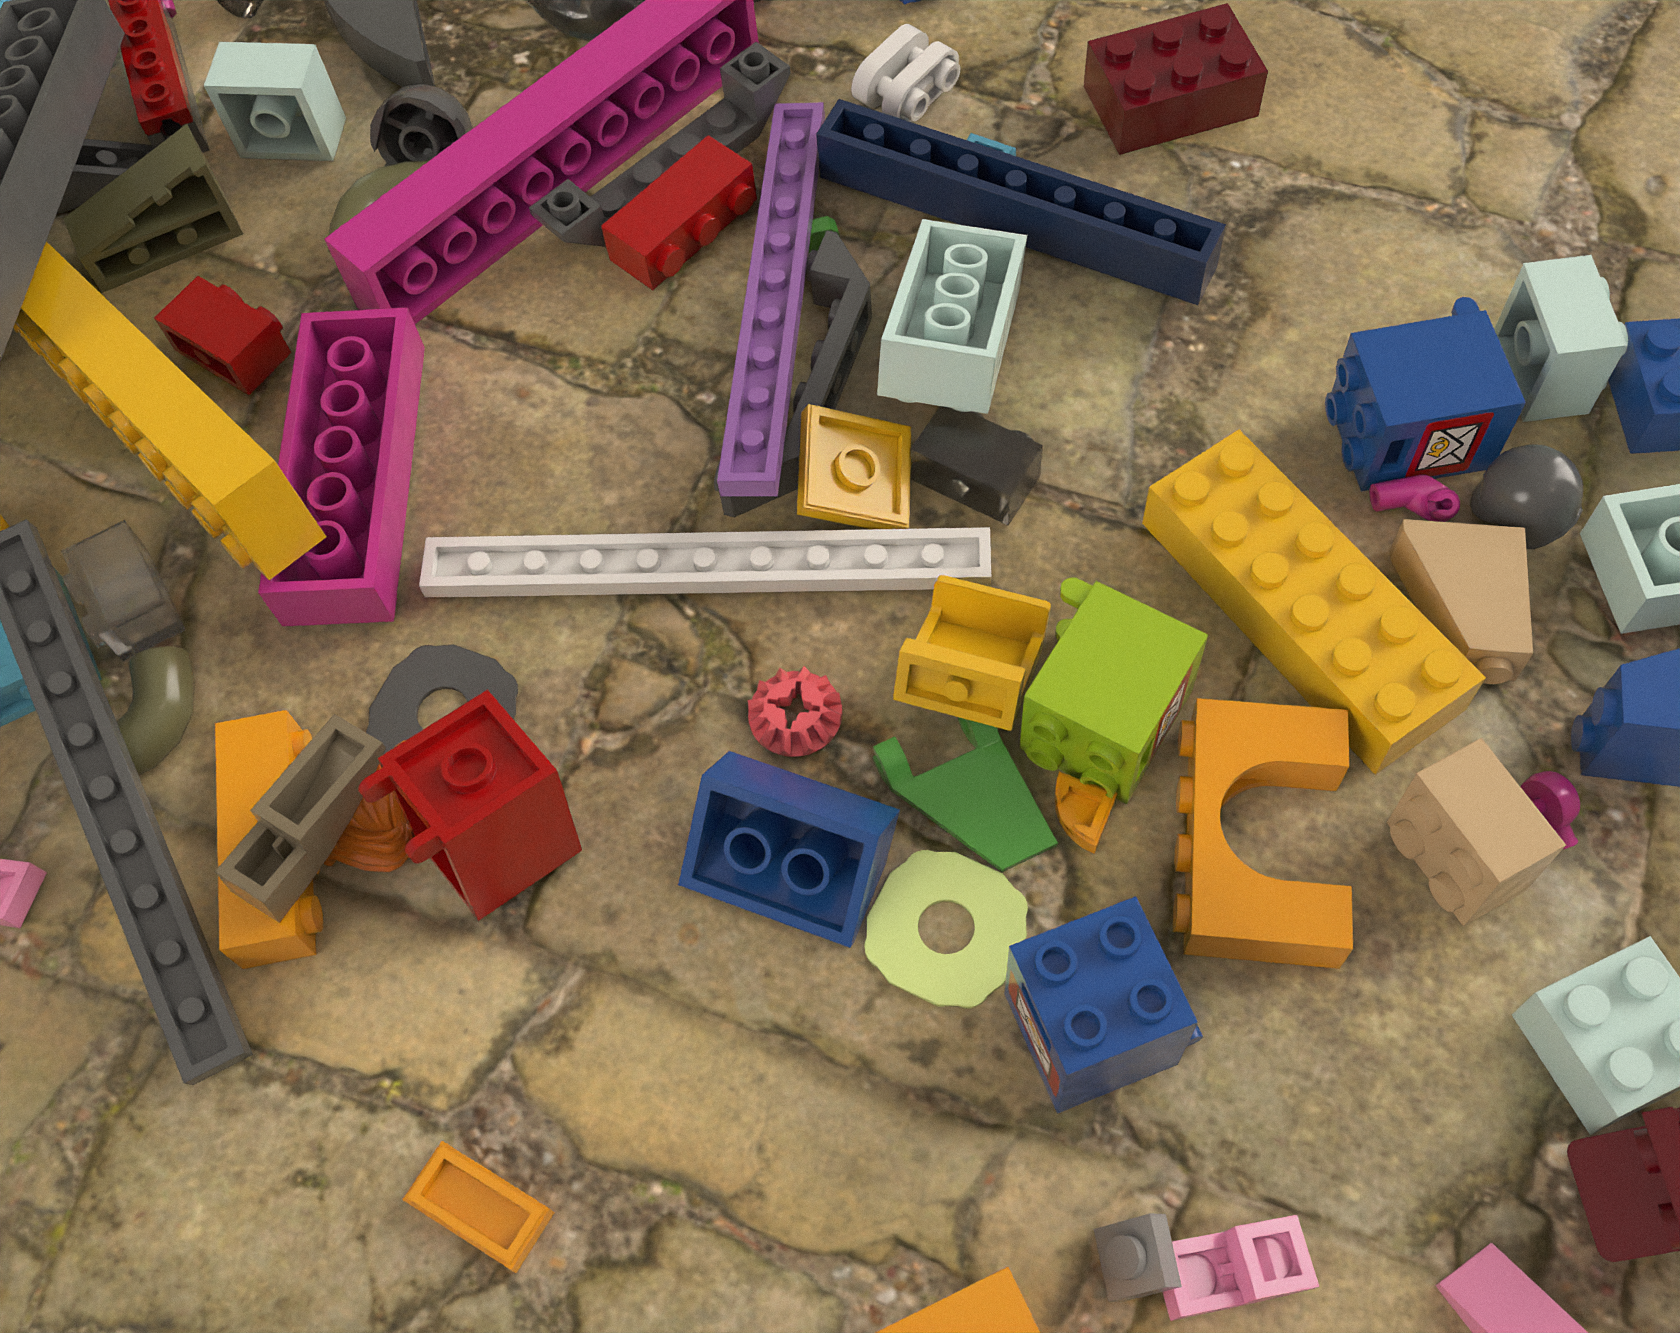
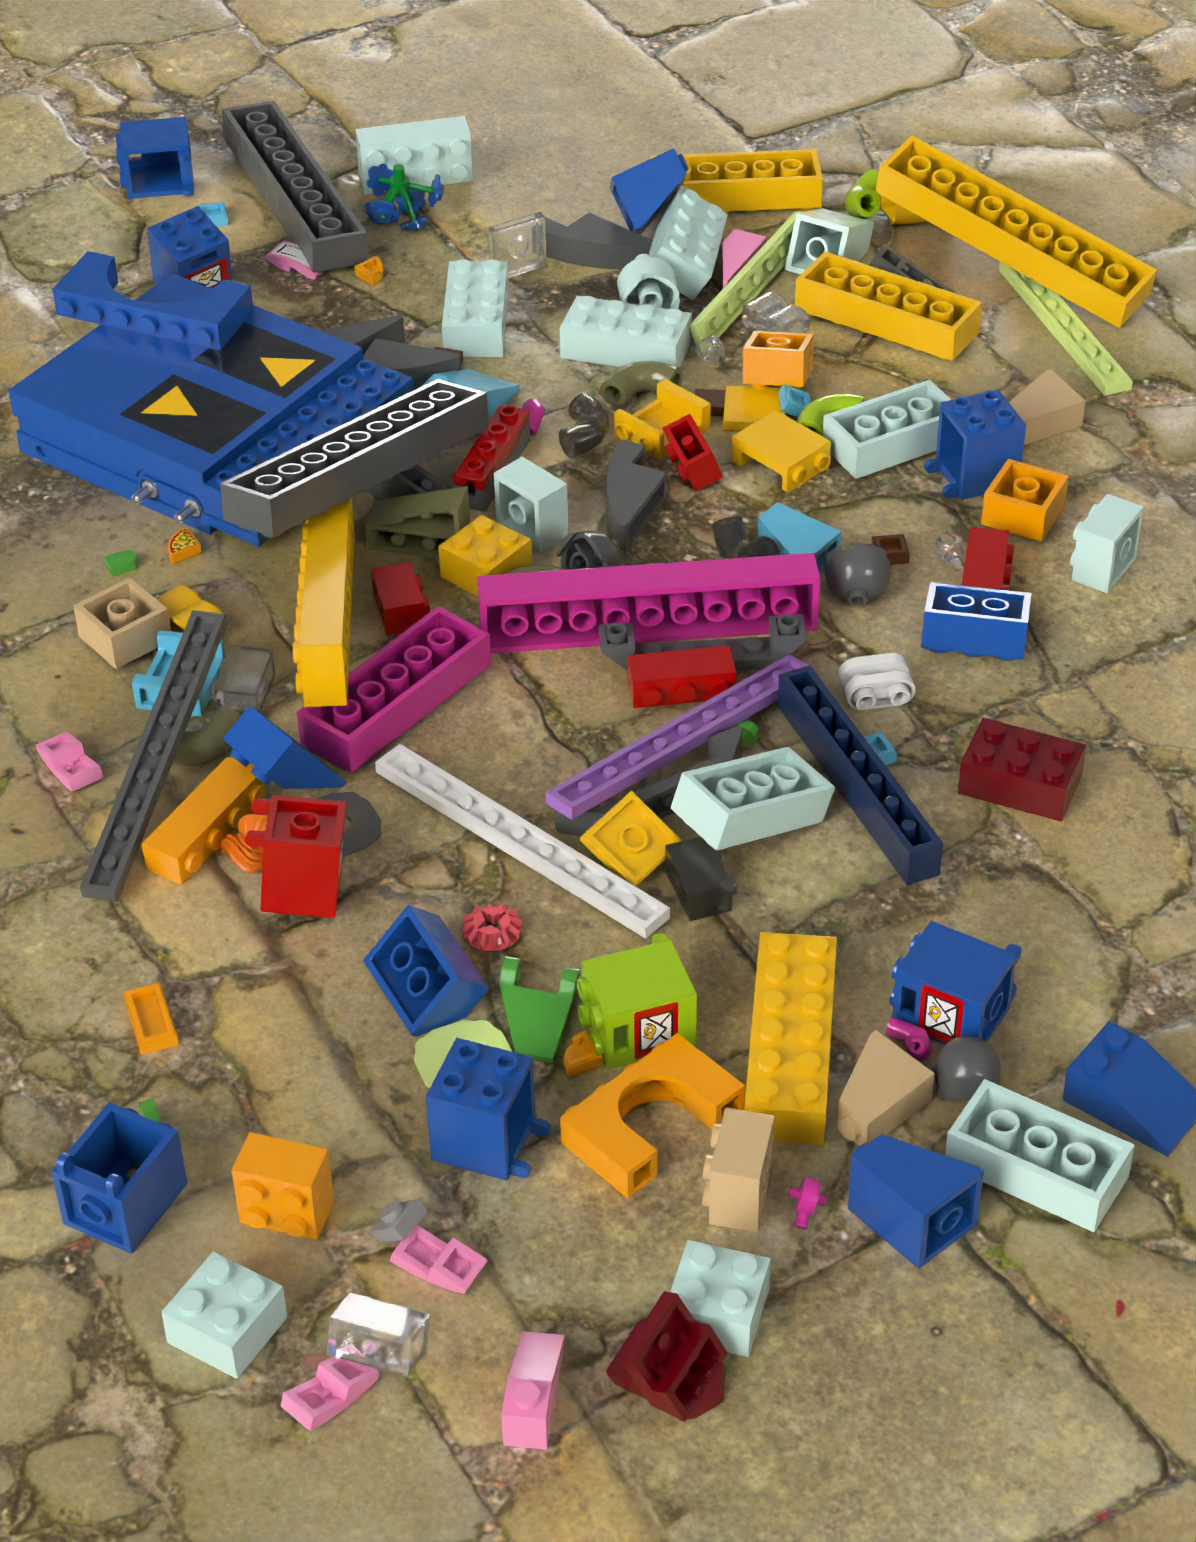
camera: 35 degrees right, 20 degrees down
(279, 208) = (481, 550): none -> yellow brick
(291, 675) = (277, 755): none -> blue slope
(301, 818) = (220, 810): dark tan slope -> none
(973, 653) = (571, 944): yellow panel -> none
(1560, 336) = (1065, 1008): light aqua brick -> none

